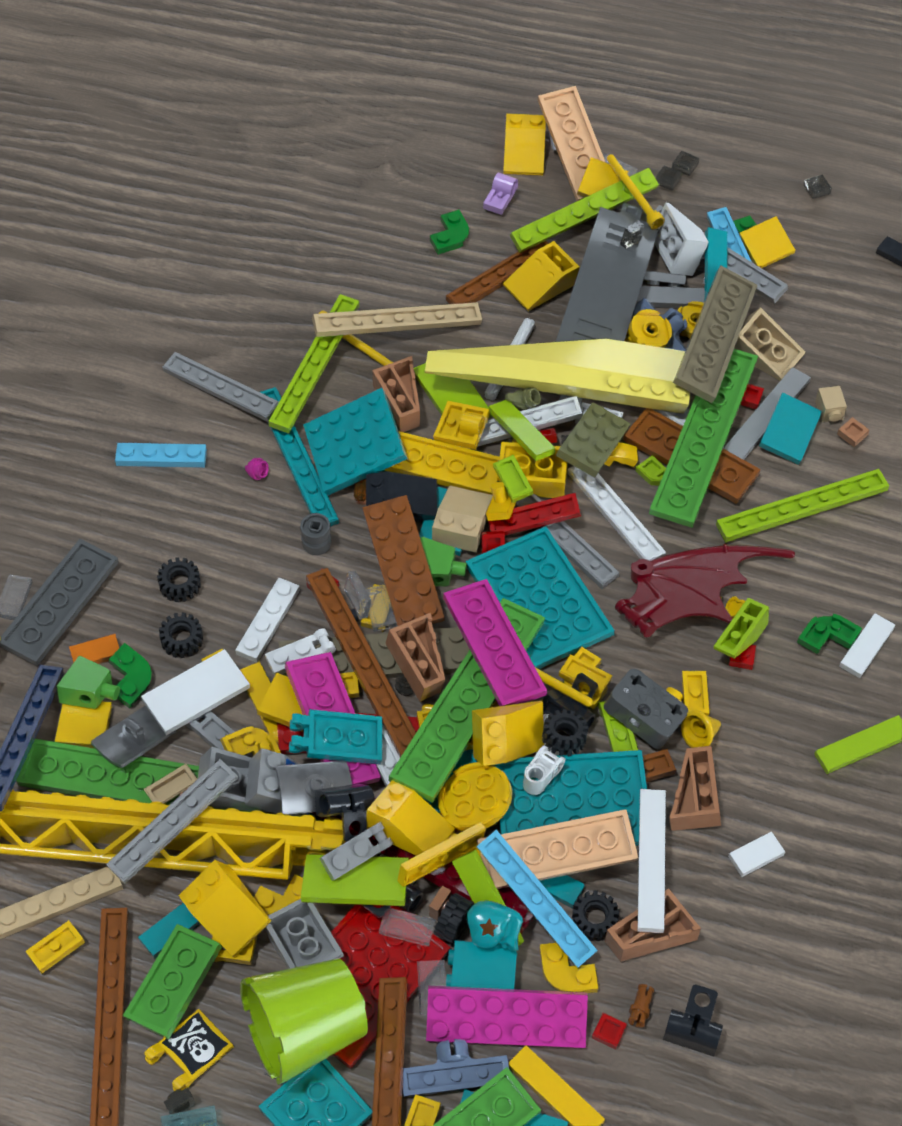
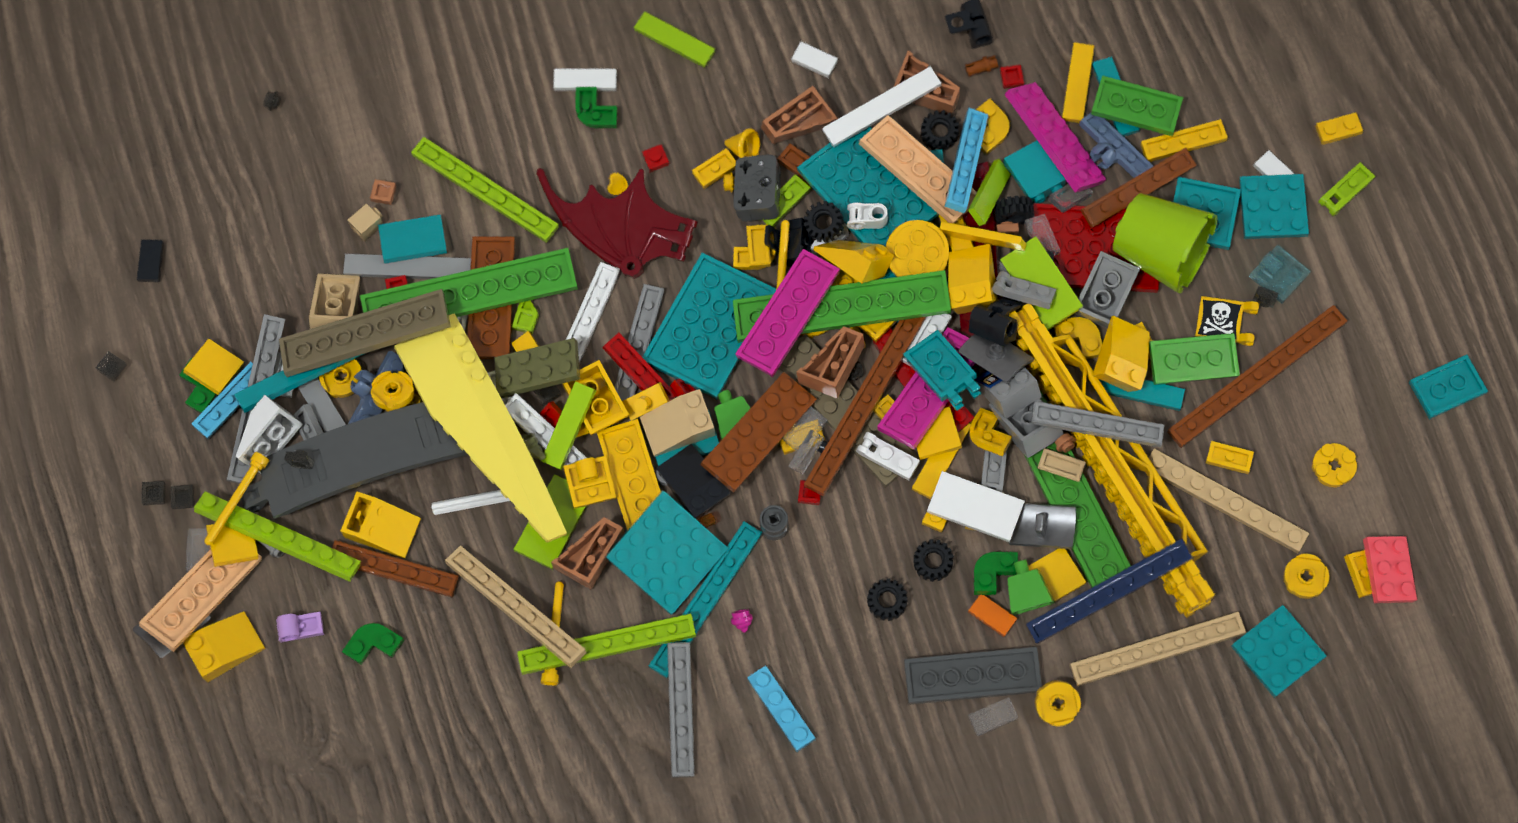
camera: 120 degrees left, 15 degrees up
(267, 620) = (871, 509): white plate -> none
(494, 925) = (1006, 173): teal piece -> none
(513, 478) = (623, 399): lime tile -> none
(743, 628) = (650, 159): lime slope -> none

